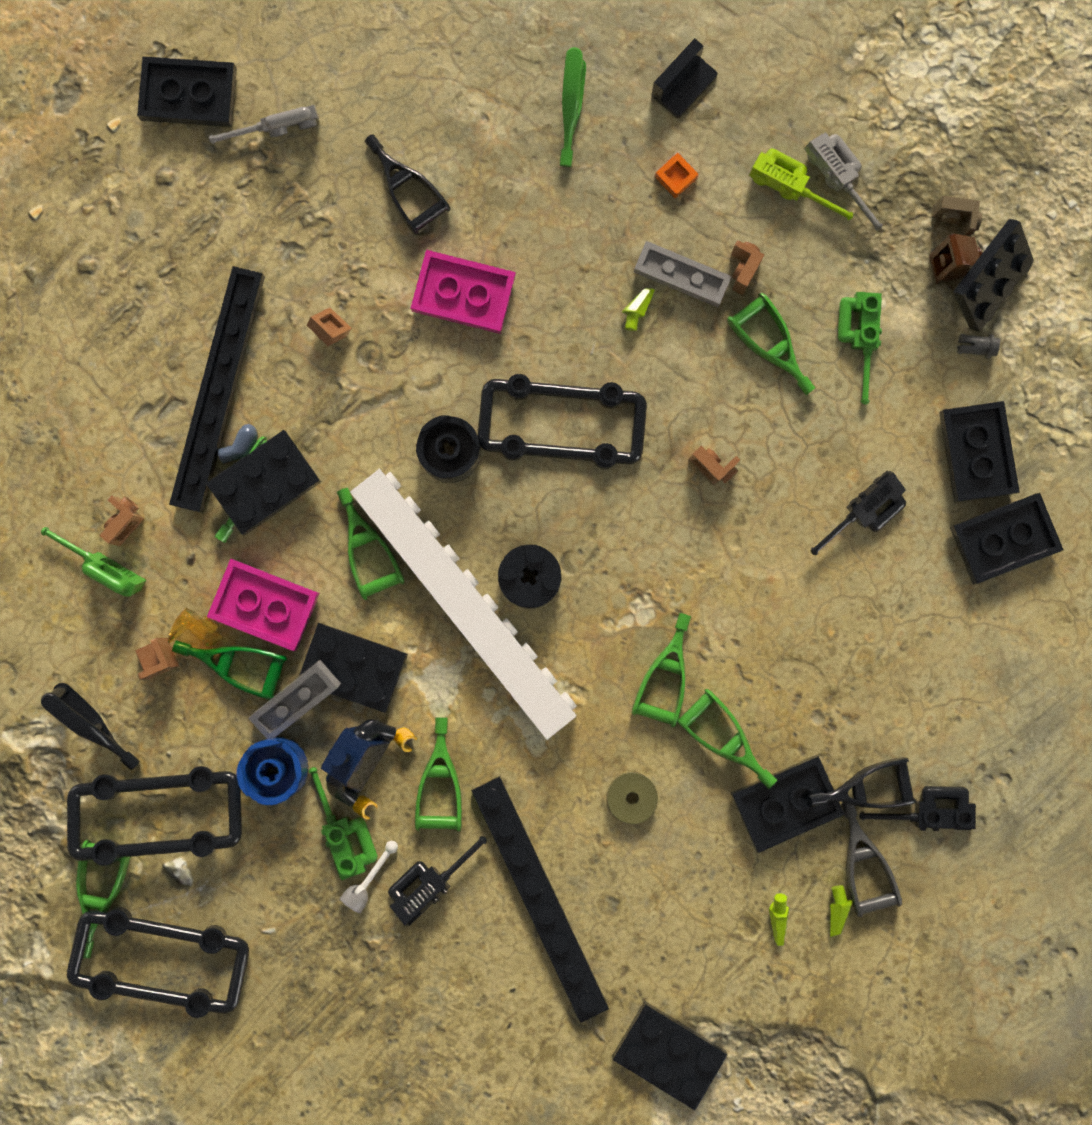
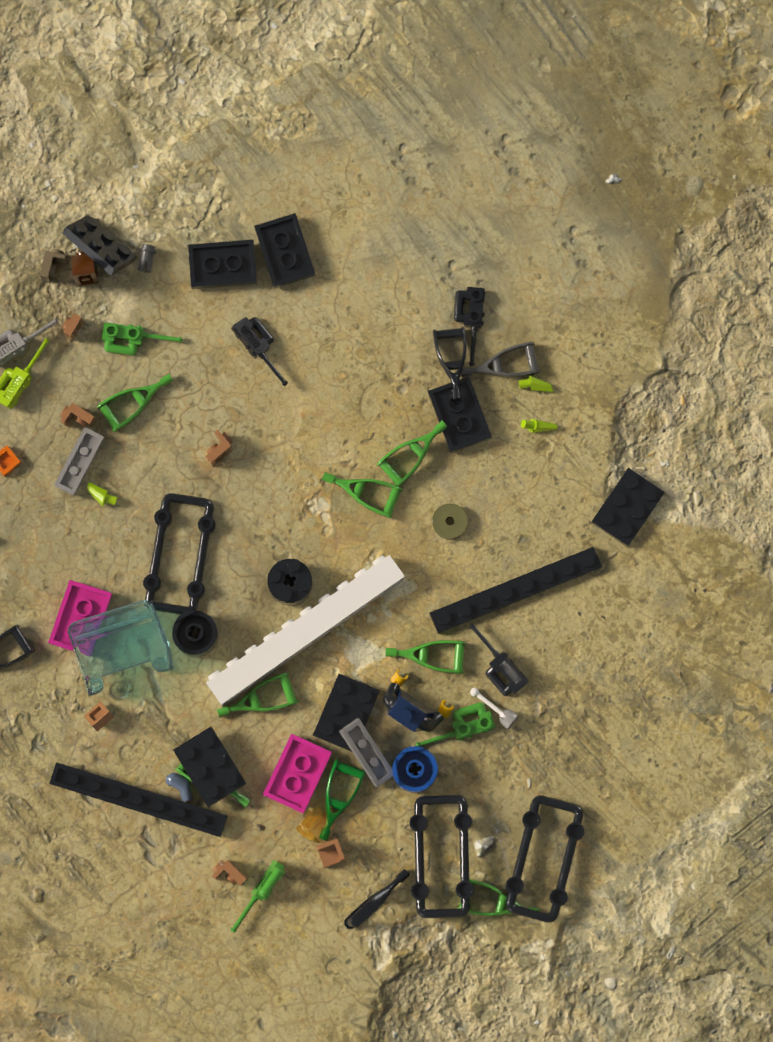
camera: 85 degrees left, 5 degrees down
(430, 341) = (118, 642): none -> clear light blue windscreen
(872, 249) = (72, 326): none -> medium nougat plate

